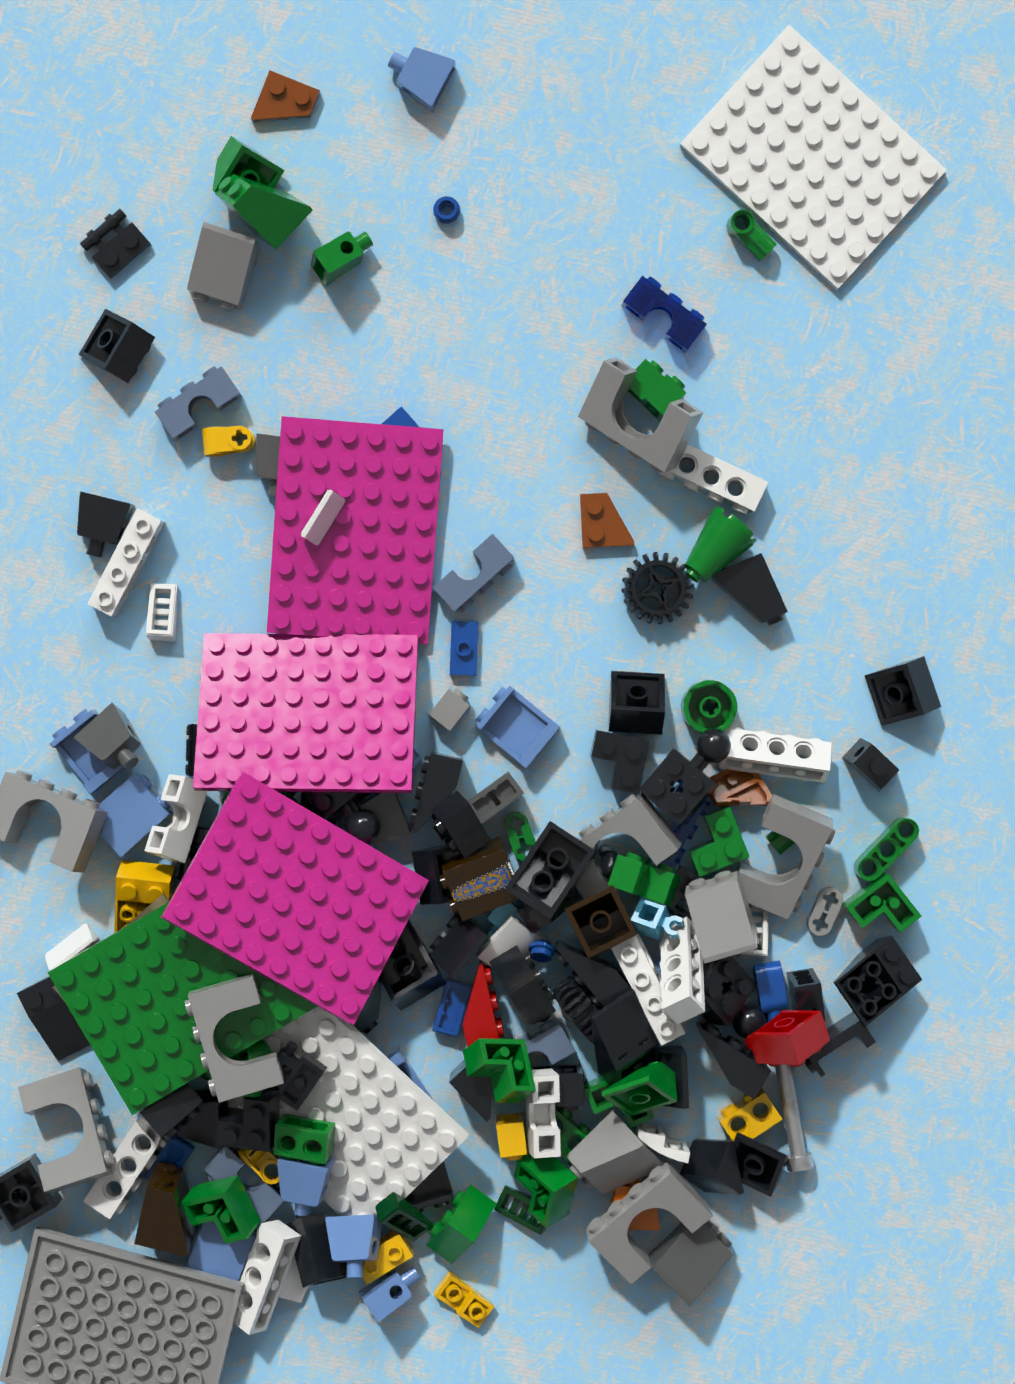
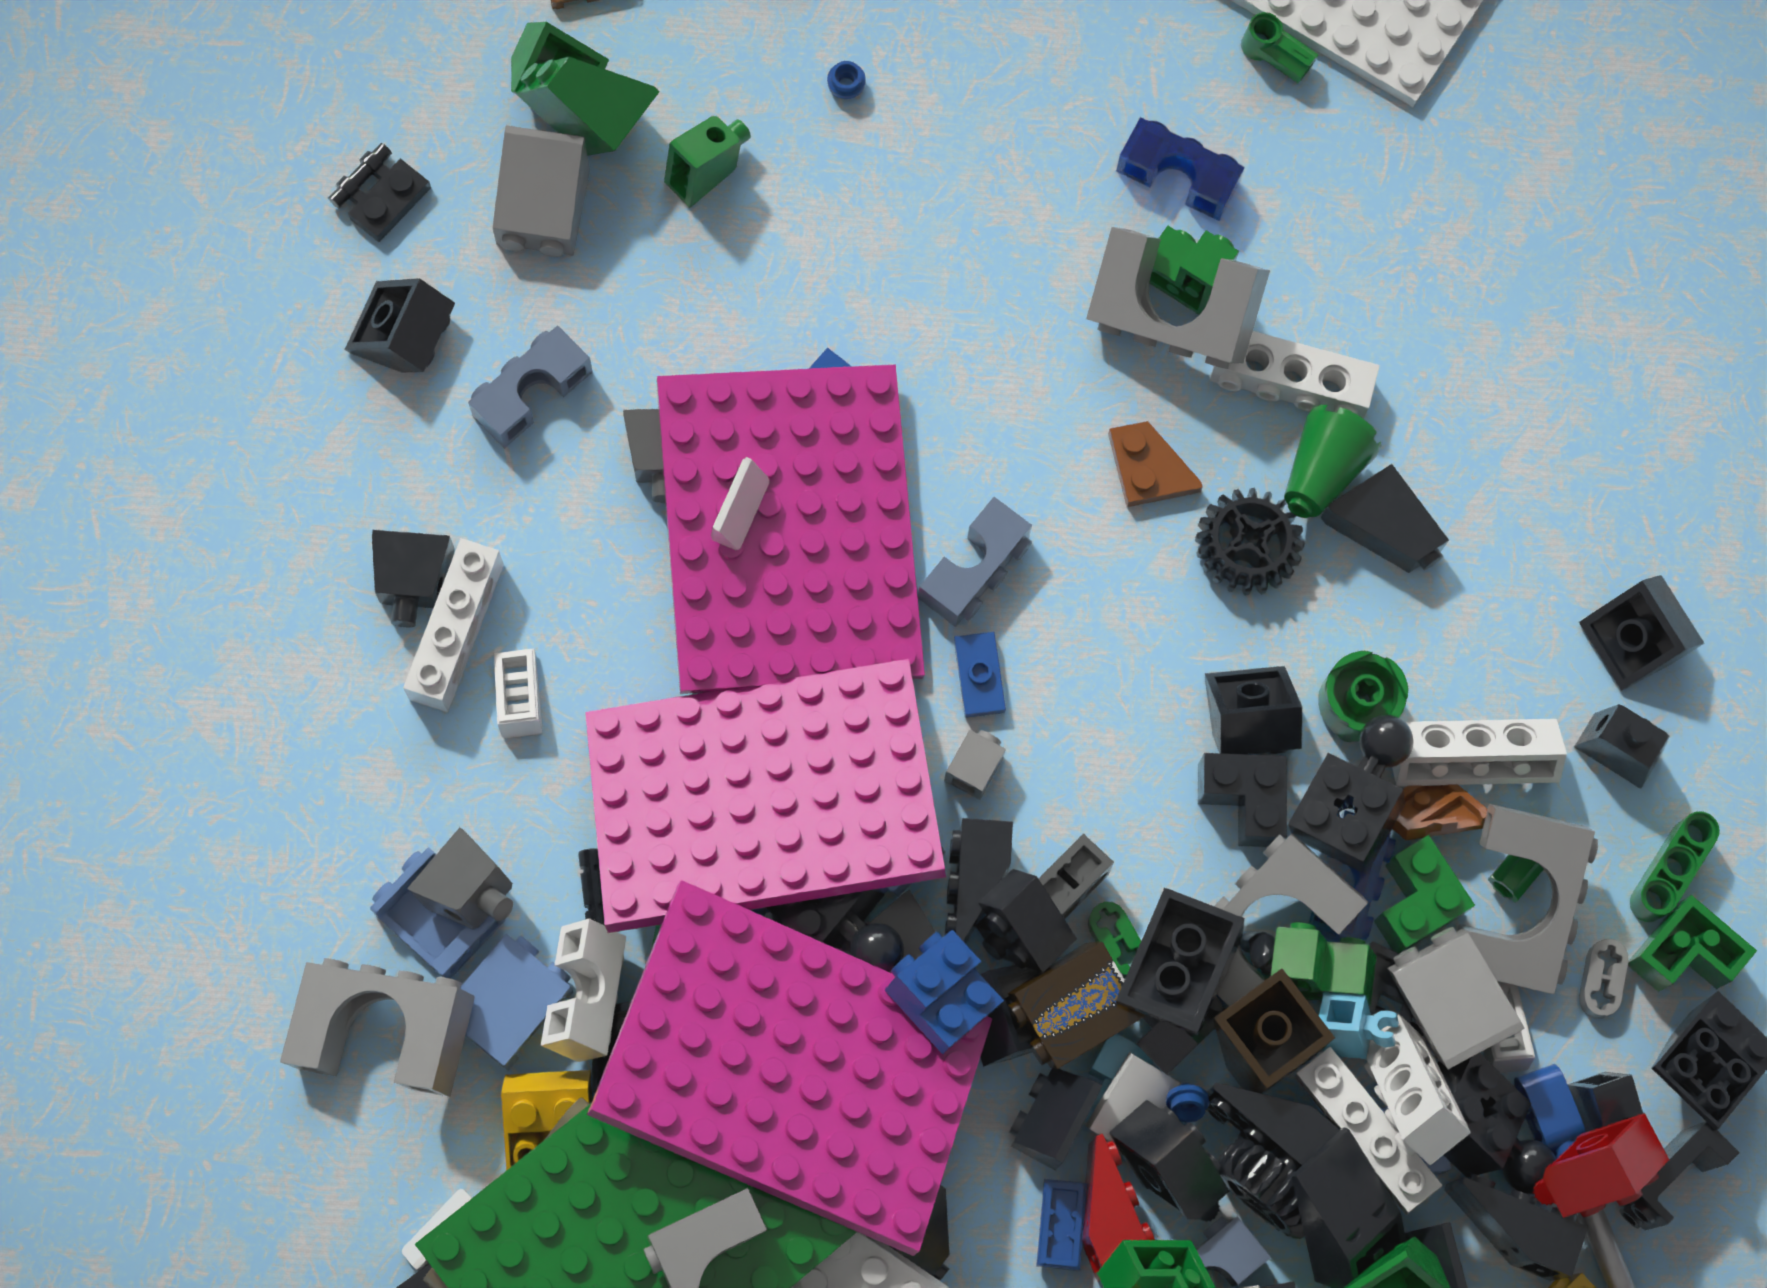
camera: 15 degrees left, 15 degrees down
(222, 440) = (577, 433): yellow piece -> none
(399, 863) = (943, 990): none -> blue plate
(410, 970) = (987, 1173): black slope -> none
(516, 725) = (1079, 774): medium blue panel -> none

